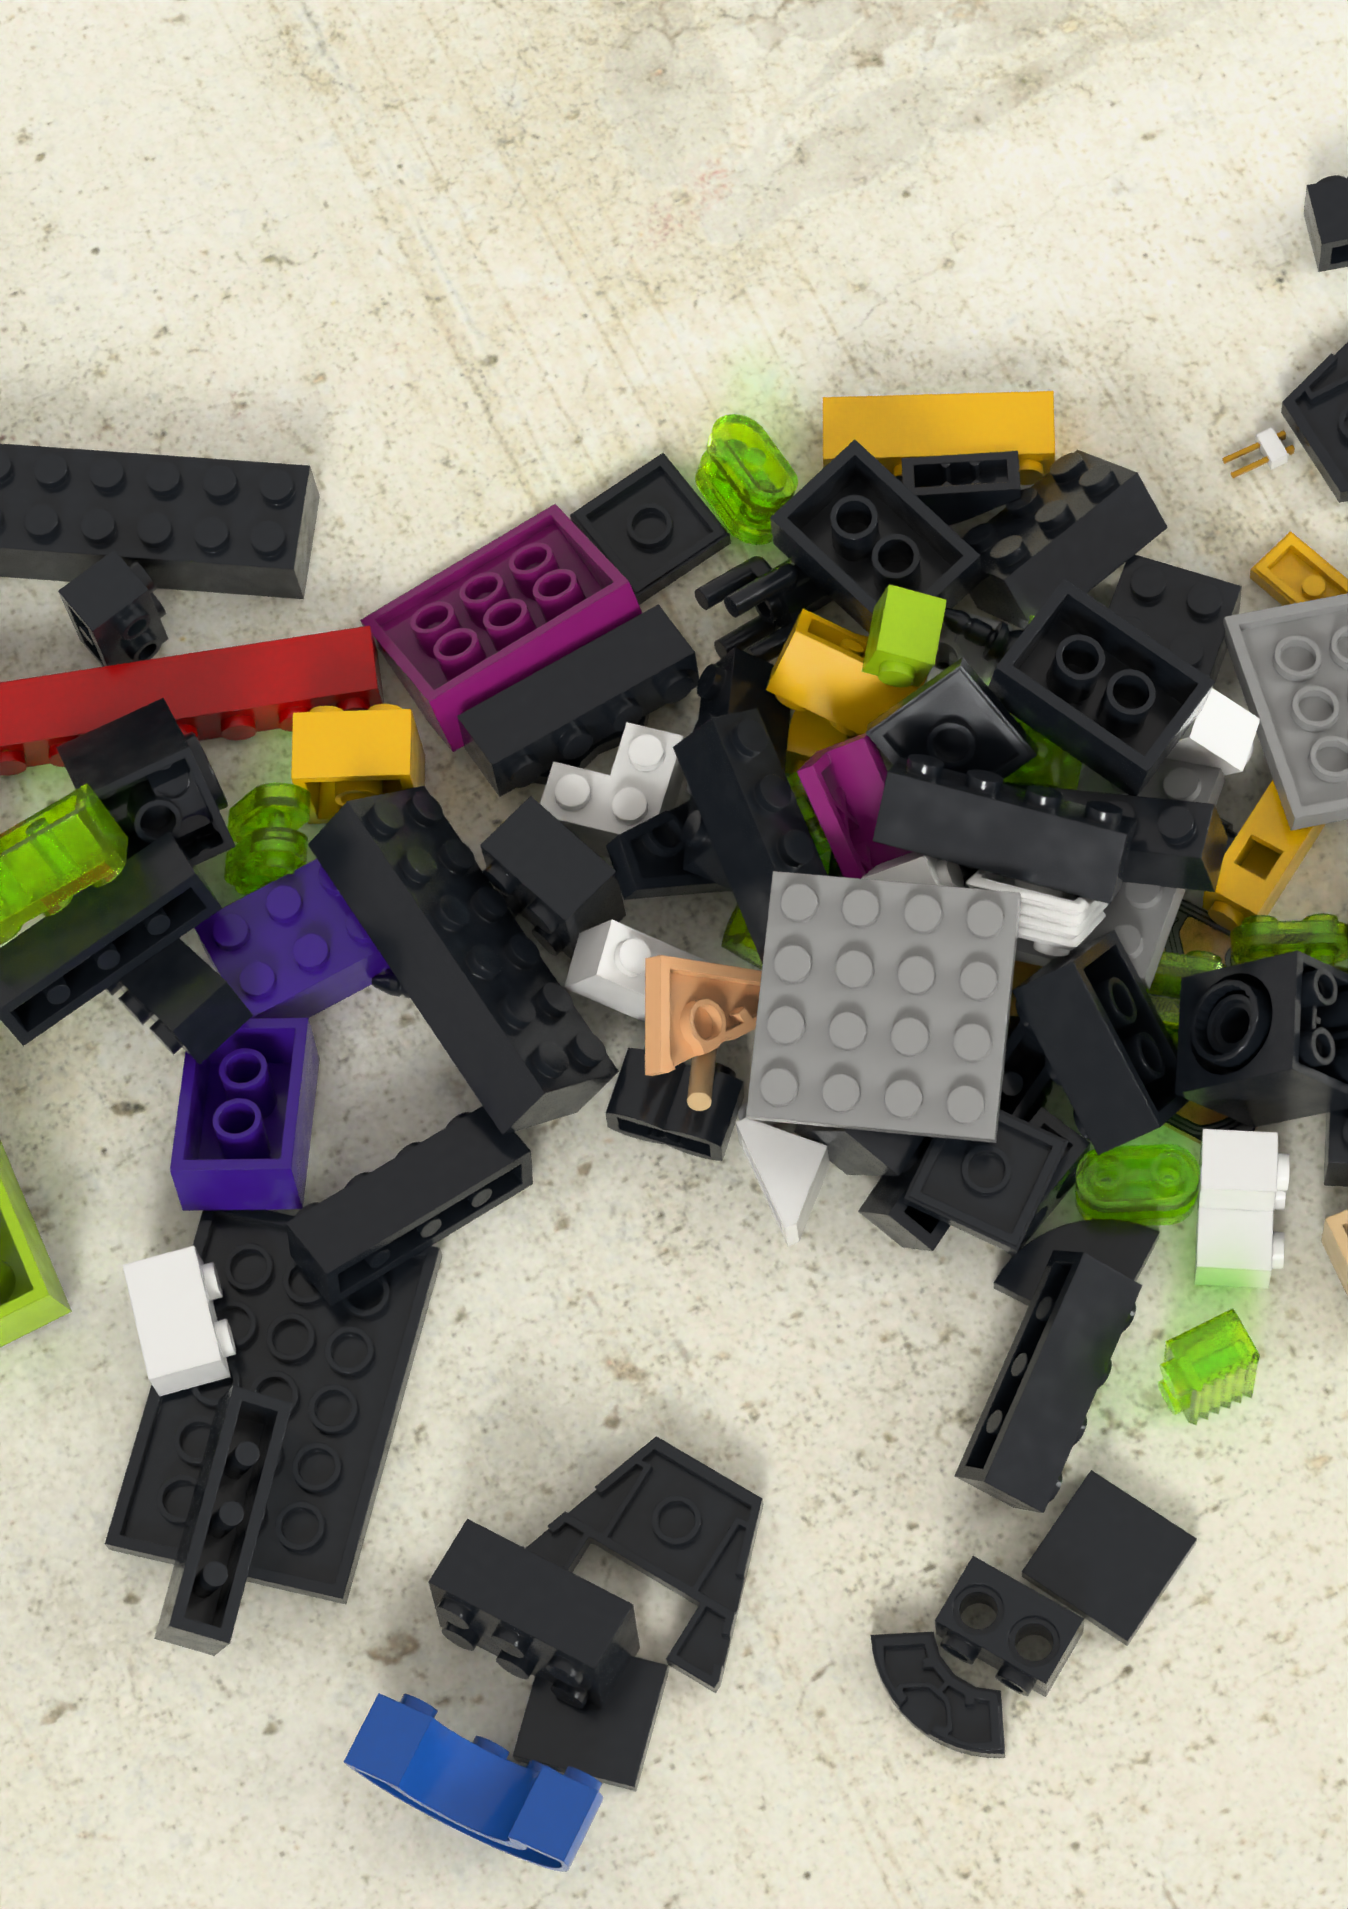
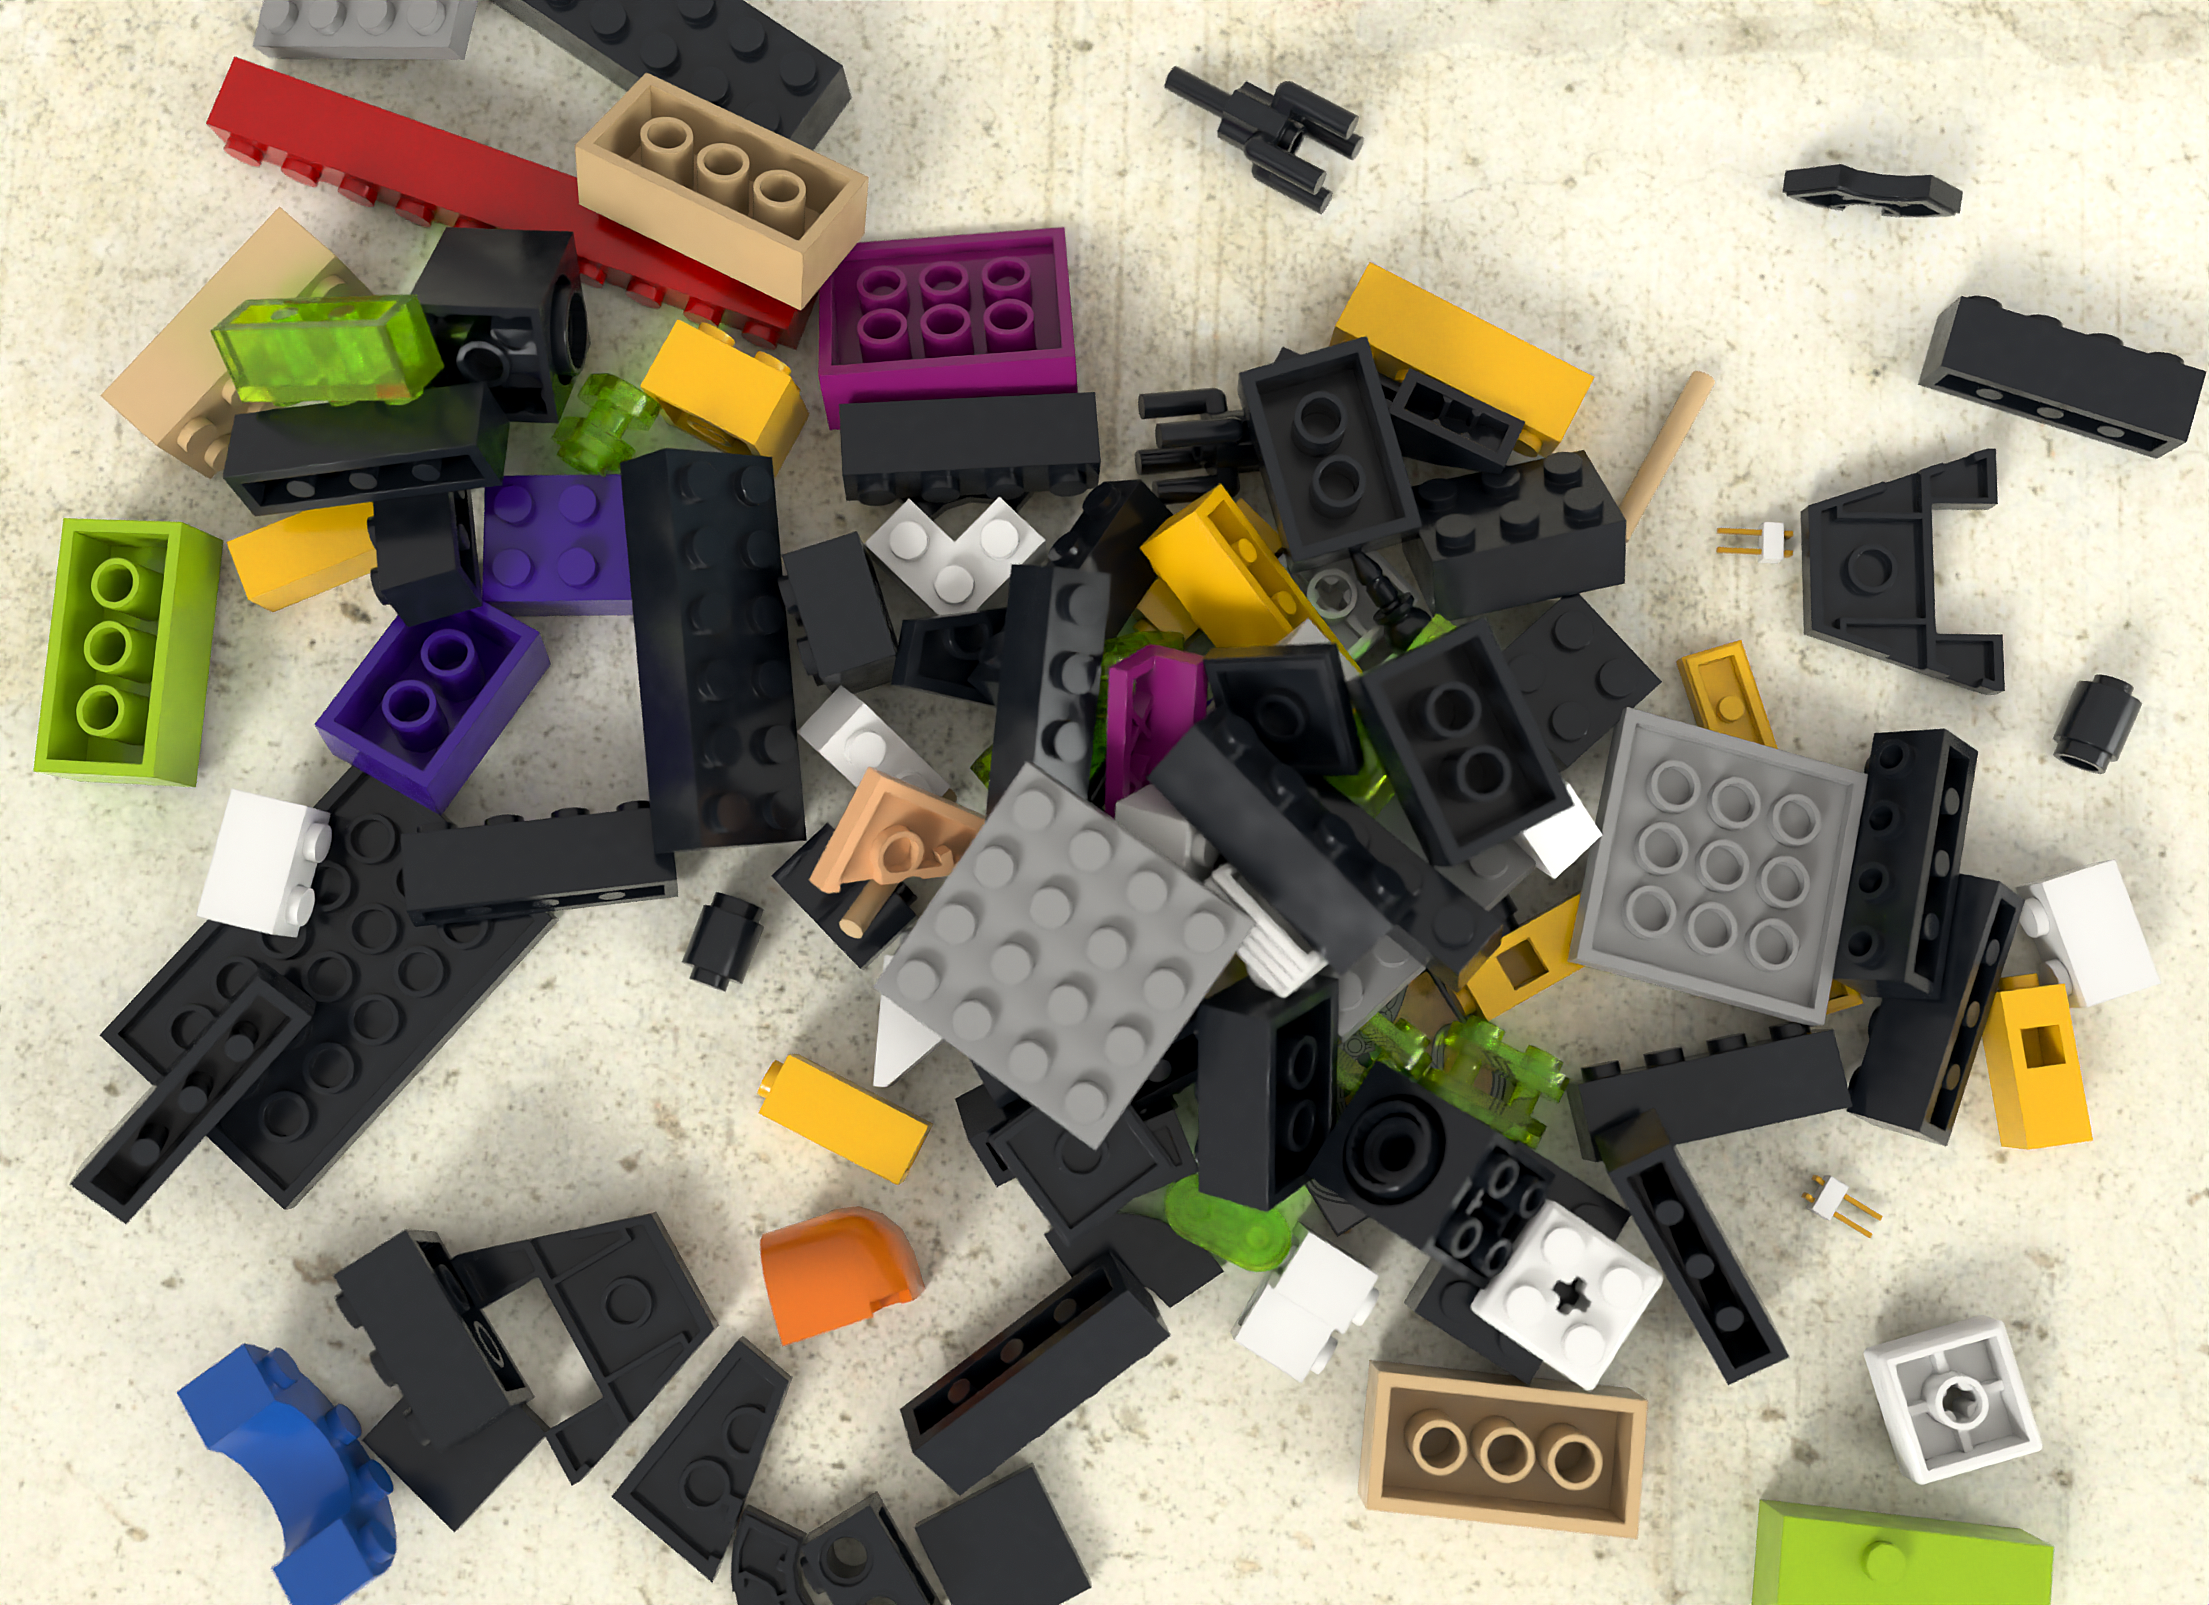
camera: 20 degrees right, 15 degrees up
(75, 1065) = (304, 554): none -> yellow brick
(115, 611) = (567, 102): black brick -> none
(271, 602) = (722, 190): none -> tan brick
(593, 1193) = (723, 941): none -> black brick
(652, 527) = (1139, 301): black tile -> none
(686, 342) = (1273, 129): none -> black plant
(744, 477) = (1252, 304): clear neon green brick -> none
(773, 1276) = (843, 1117): none -> yellow brick
(815, 1609) = (707, 1458): none -> black wing
(840, 1387) = (836, 1271): none -> orange brick
(904, 636) = (1296, 577): lime brick -> none
(1144, 417) = (1665, 449): none -> tan bar
(1209, 1367) = (1189, 1448): clear neon green brick -> none
(1218, 137) = (1897, 195): none -> black tile

